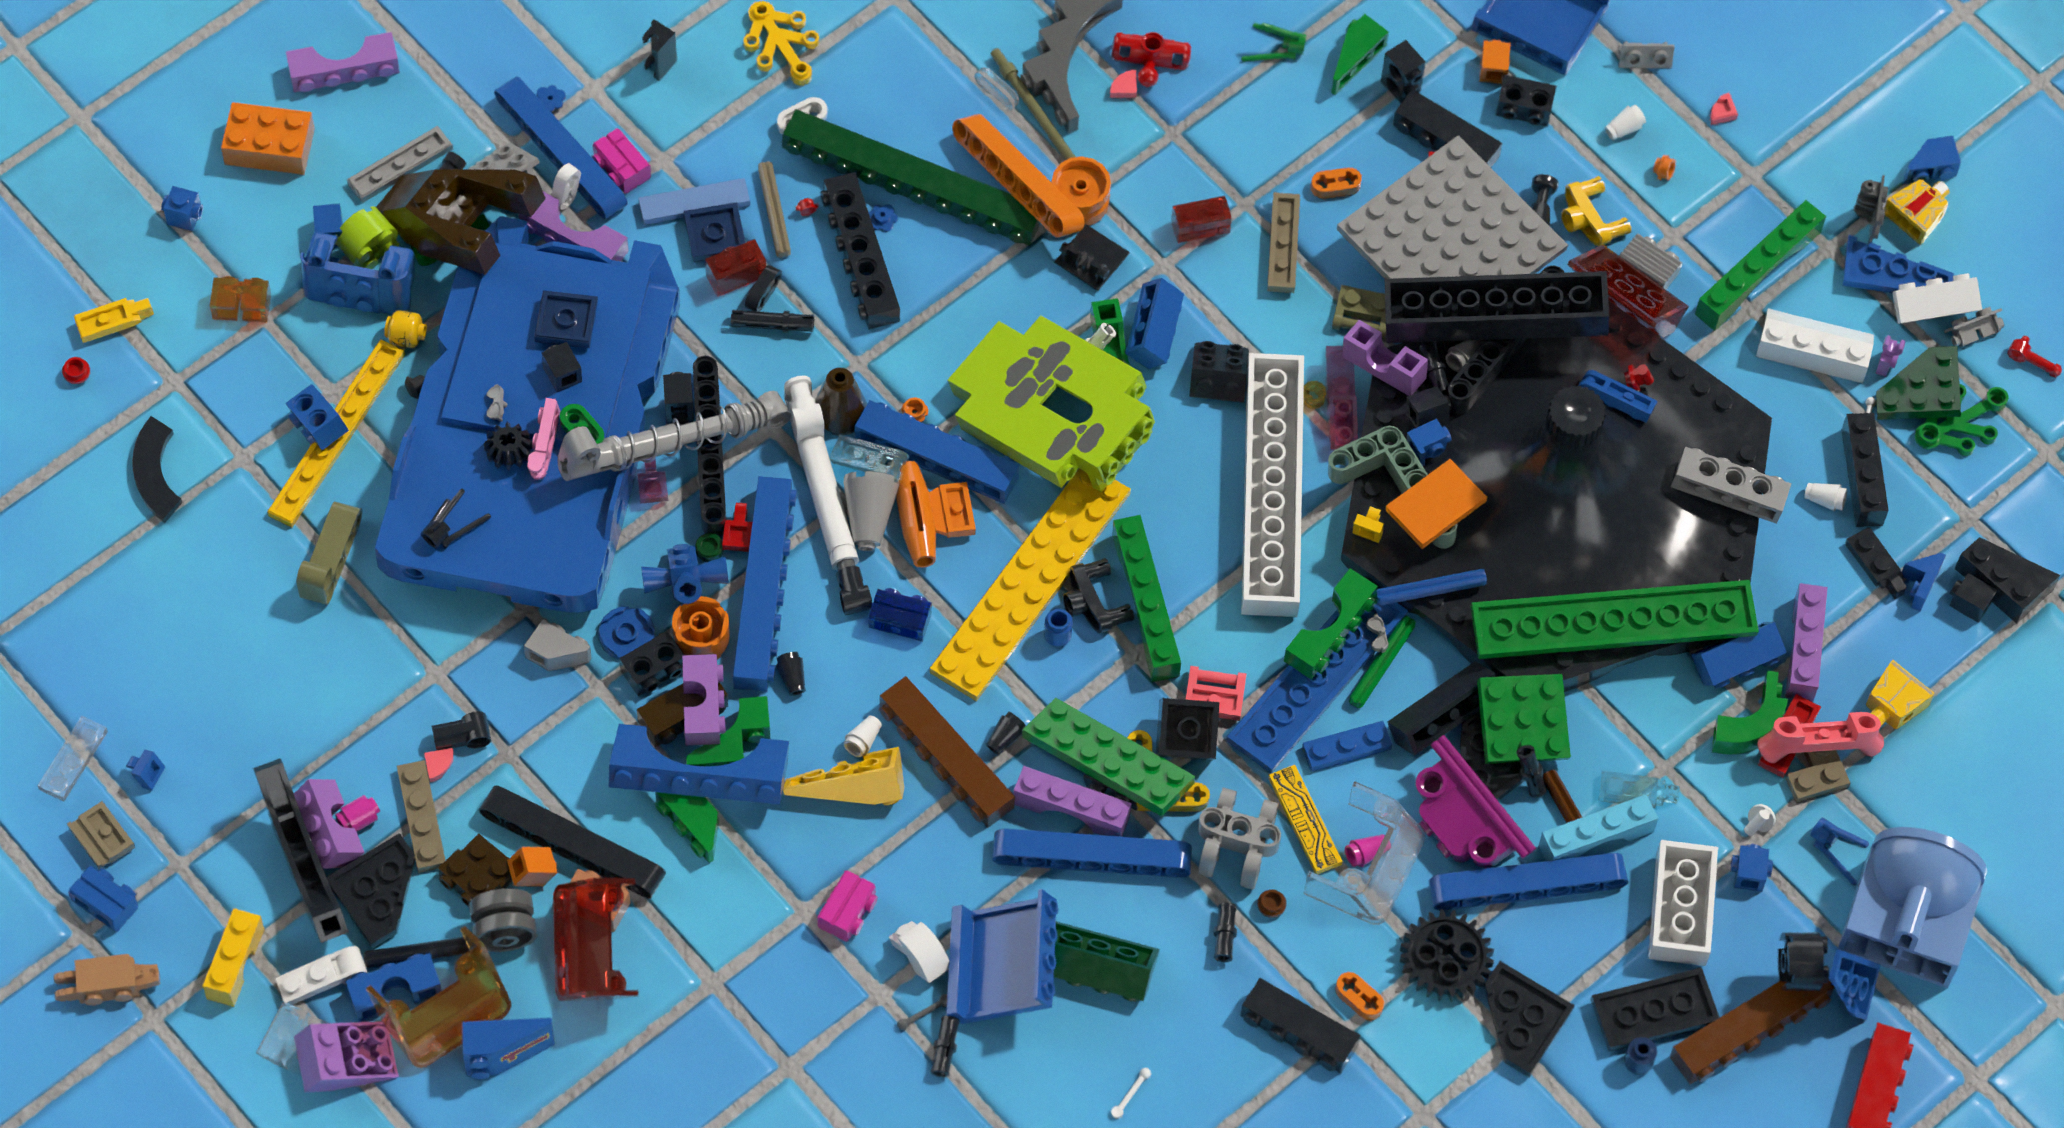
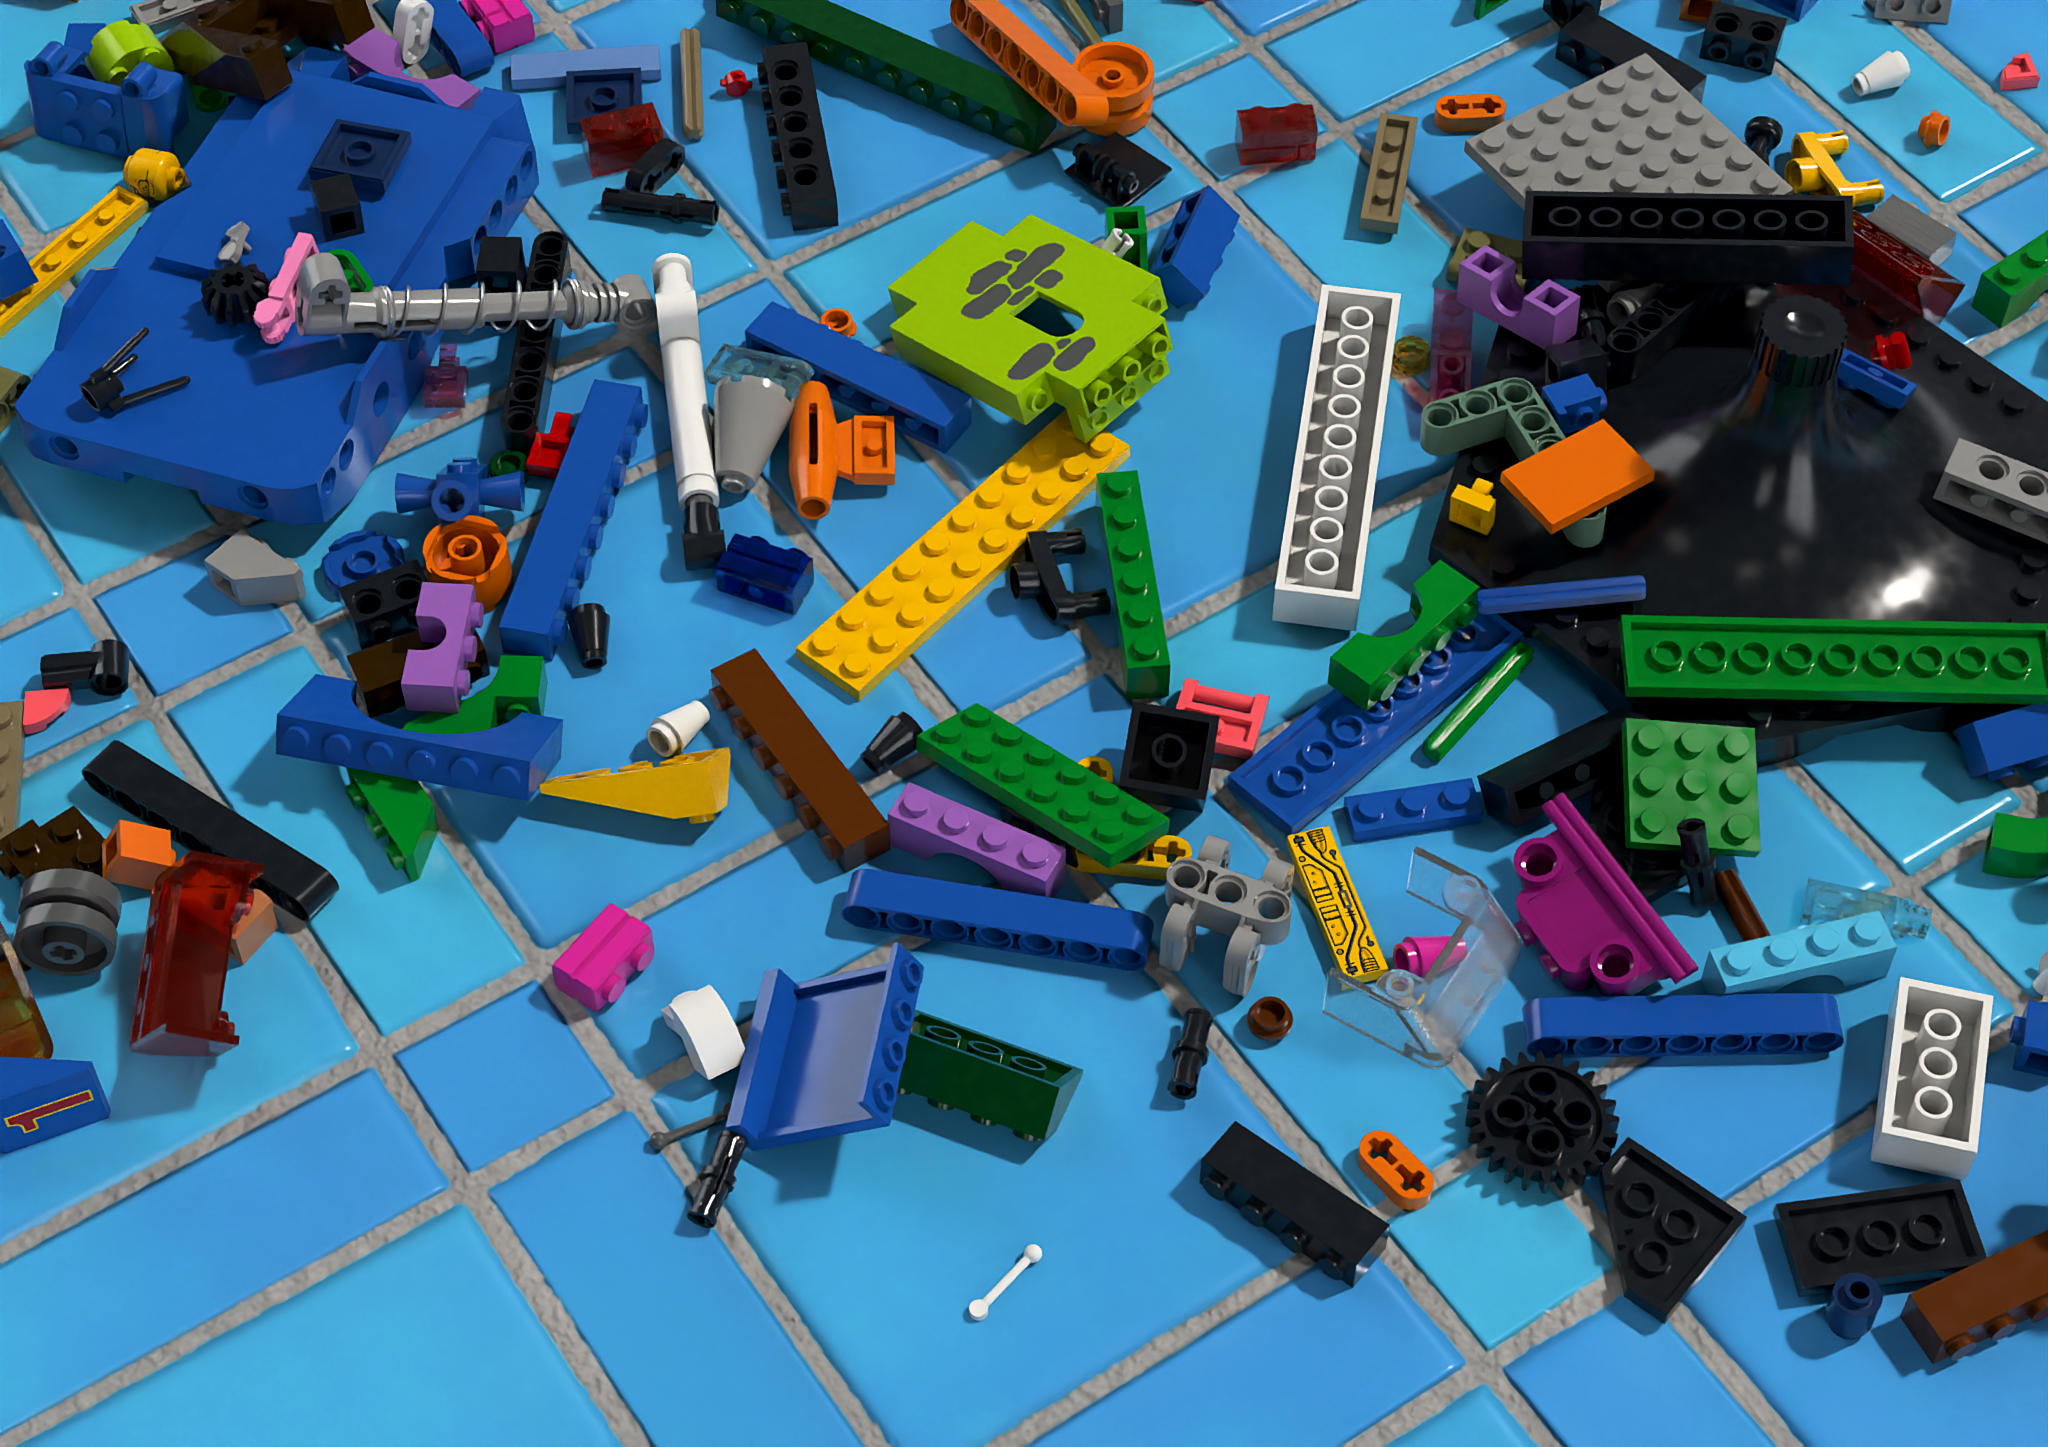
camera: 10 degrees right, 10 degrees down
(840, 402) = (728, 296): dark brown cone -> none
(885, 222) = (838, 106): blue plant -> none
(1058, 627) = (994, 607): blue brick -> none
(1219, 371) = (1276, 316): black bracket -> none
(1376, 626) = (1473, 647): light grey piece -> none

